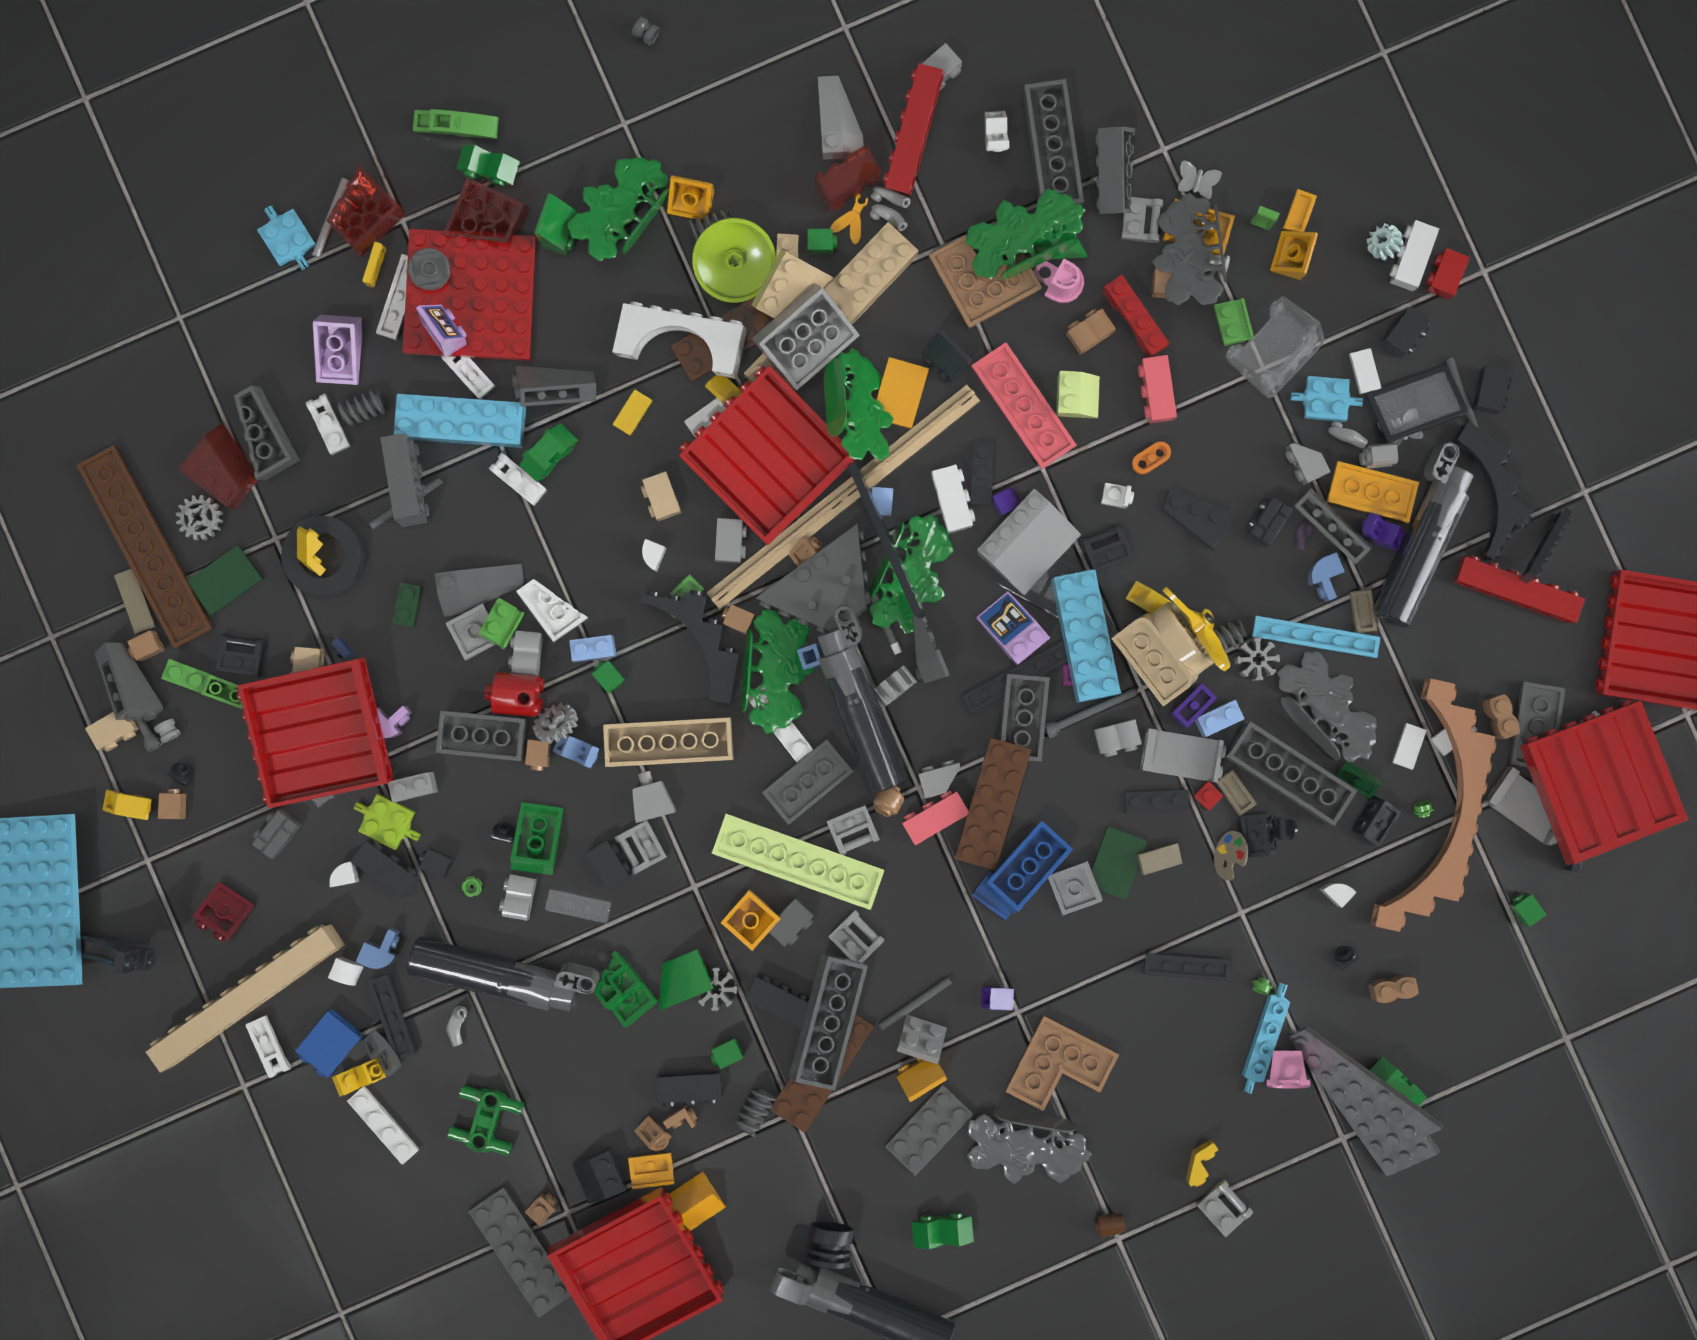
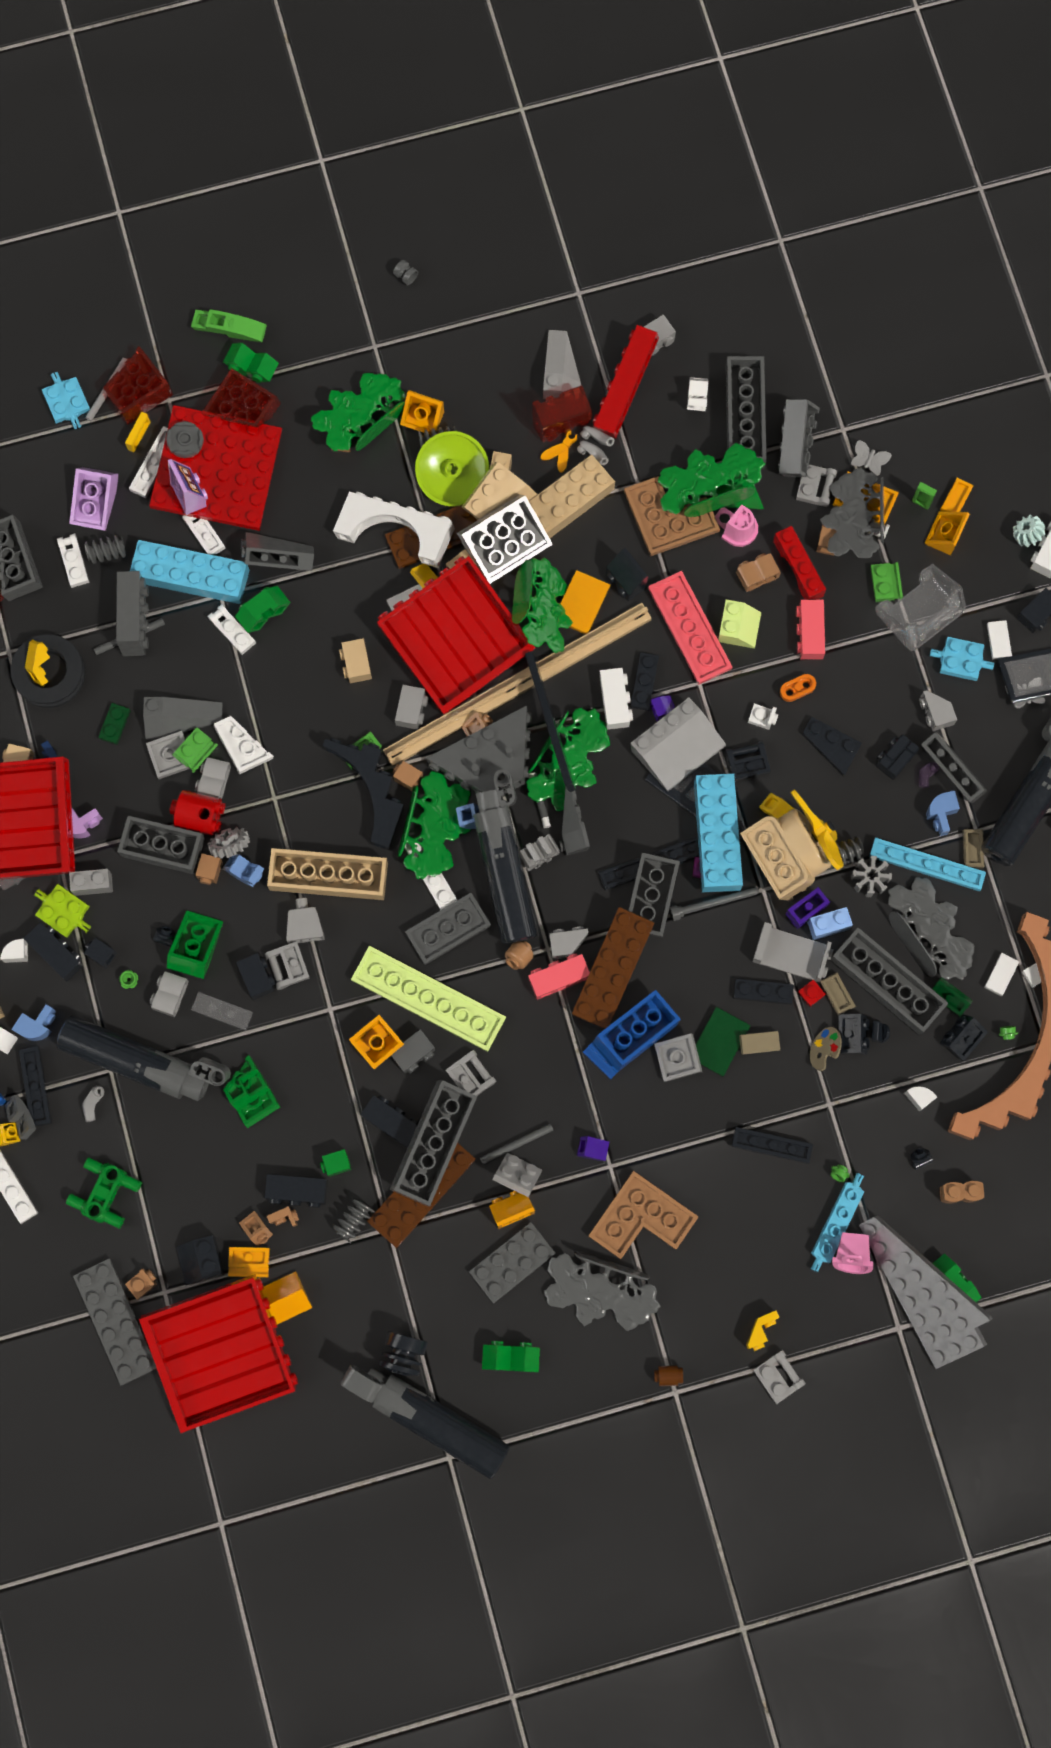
camera: 10 degrees right, 10 degrees down
(552, 225) = (298, 418): green slope -> none
(593, 648) = (273, 783): light blue brick -> none
(608, 676) = (283, 810): green brick -> none
(632, 412) = (342, 587): yellow tile -> none
(653, 554) = (341, 709): white brick -> none
(683, 979) = (306, 1089): green slope -> none
(725, 988) = (337, 1096): light grey gear -> none
(821, 241) = (531, 464): green brick -> none
(851, 823) = (481, 971): light grey plate -> none
(883, 499) = (553, 690): light blue brick -> none
(1012, 628) = (654, 819): slope -> none
(1117, 737) = (735, 928): light grey brick -> none
(1347, 435) = (976, 692): light grey arm -> none
(1372, 492) = (993, 744): light orange plate -> none
(1379, 456) = (1002, 712): light grey brick -> none
(1382, 532) = (997, 780): dark purple brick -> none

